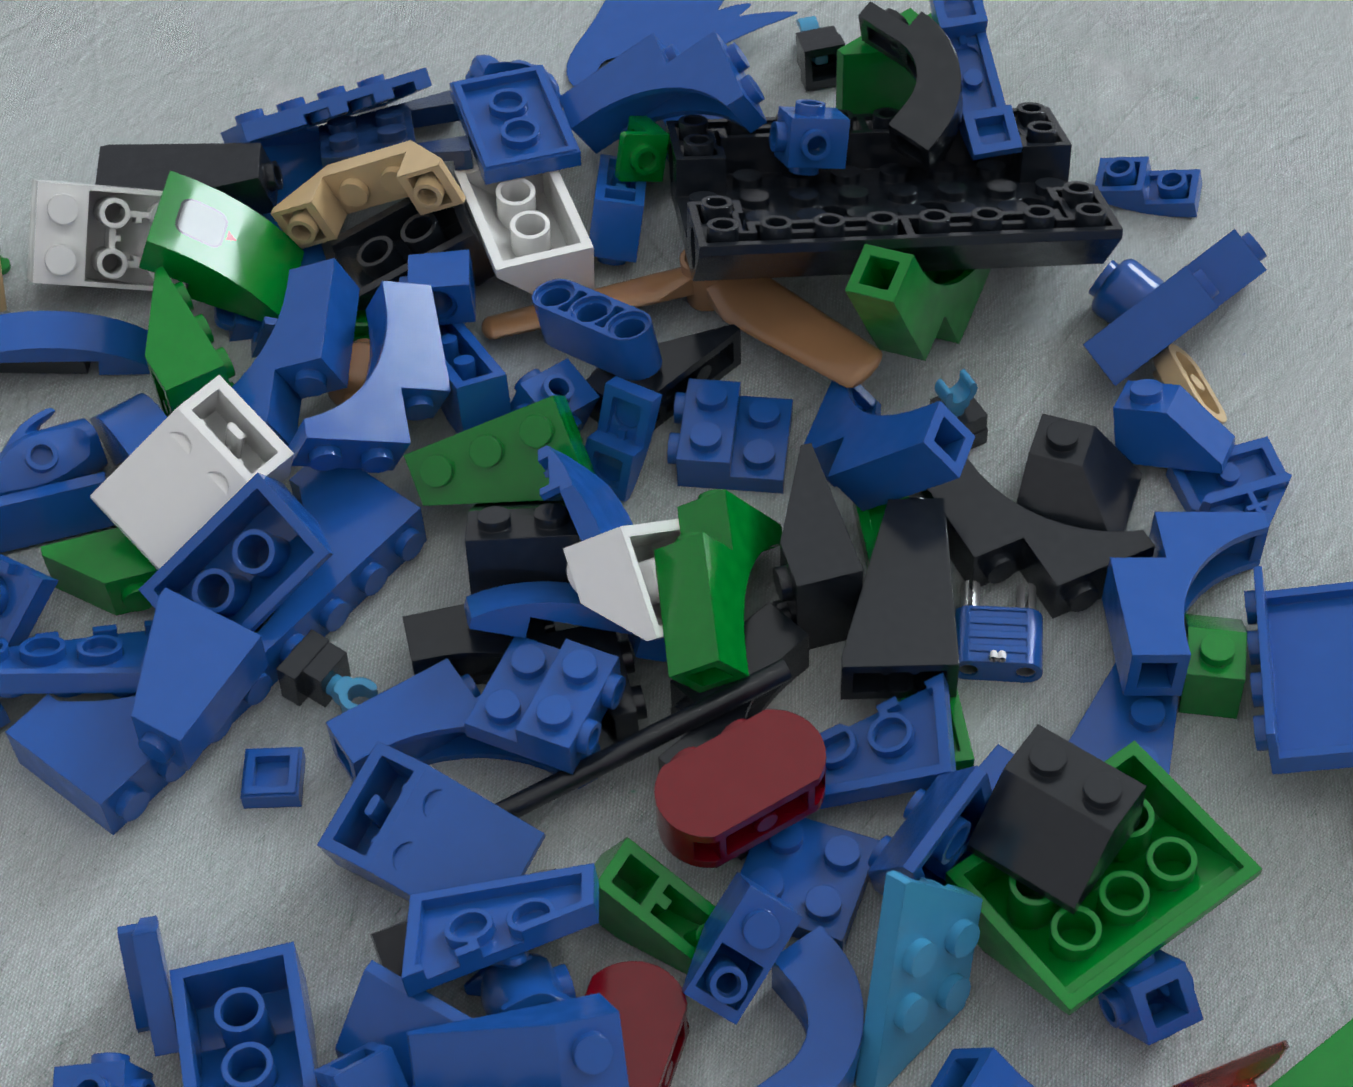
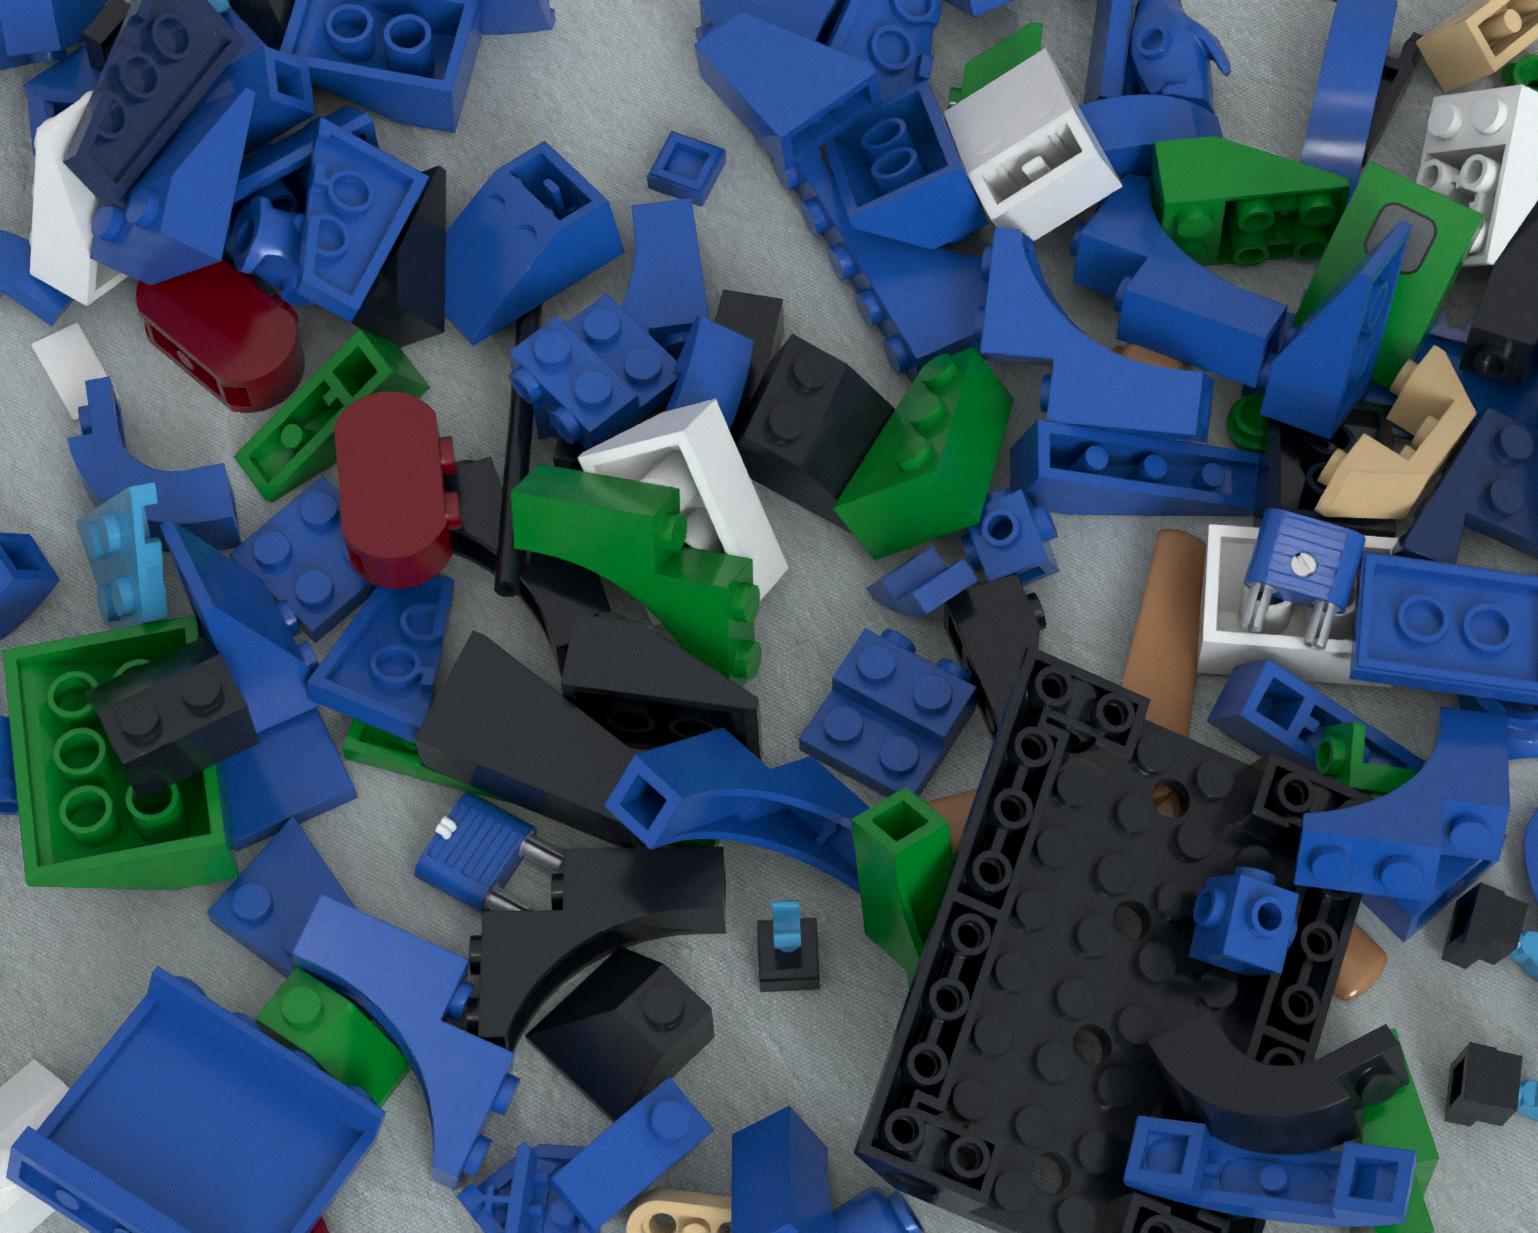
camera: 115 degrees right, 10 degrees up
(294, 219) = (1336, 349): none -> blue slope
(321, 673) = (777, 229): black piece -> none
(451, 282) = (1224, 474): blue brick -> none
(511, 199) = (1304, 565): none -> blue piece
(587, 497) = (792, 466): blue slope -> none
(597, 329) = (1104, 585): blue beam -> none
(739, 947) = (253, 443): blue slope -> none

